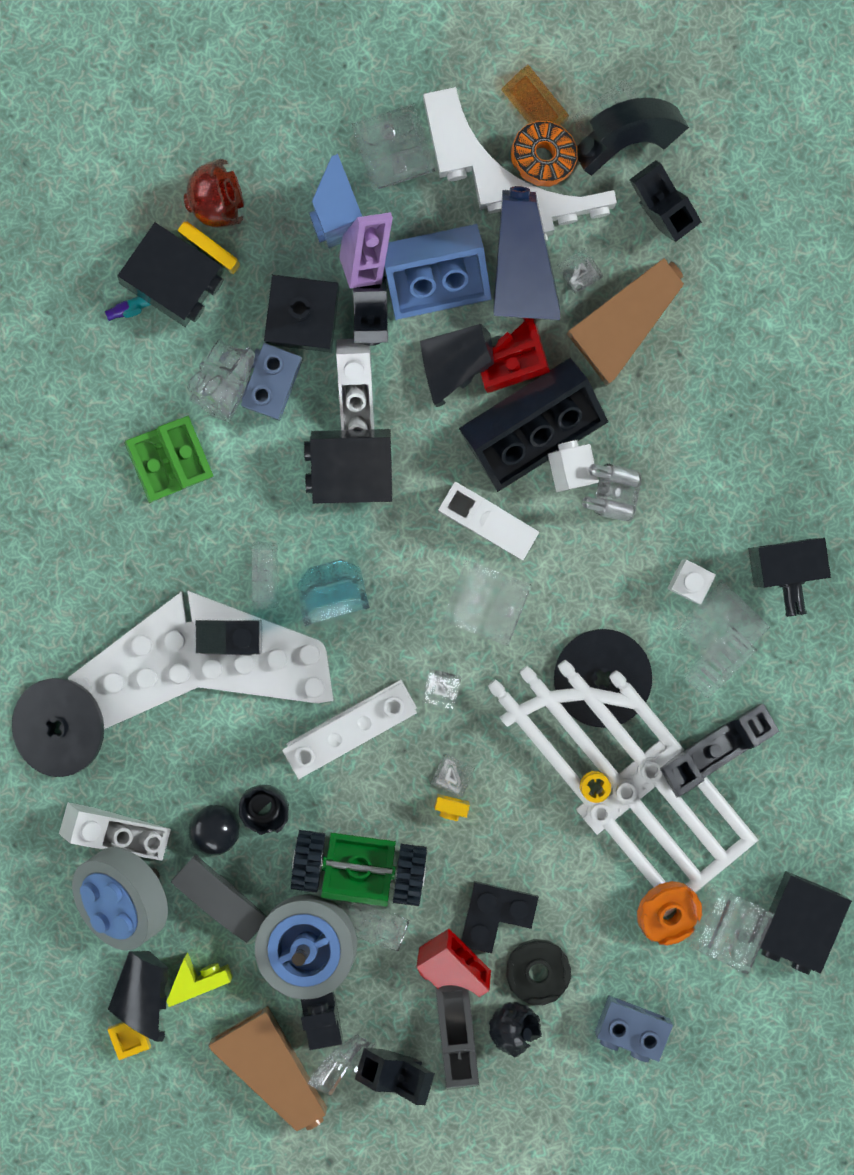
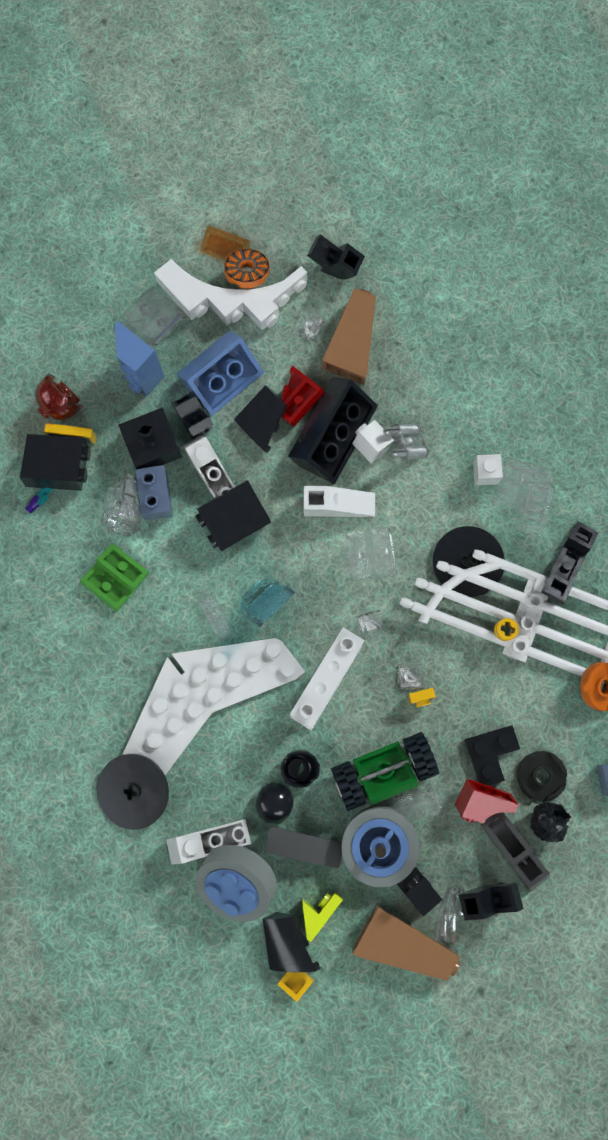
camera: 30 degrees left, 10 degrees down
(229, 637) = (213, 665): black slope -> none
(365, 249) = (167, 373): lavender slope -> none
(523, 267) = (271, 335): dark blue slope -> none
(627, 124) = (286, 225): black arch -> none
(790, 567) = (542, 425): black brick -> none

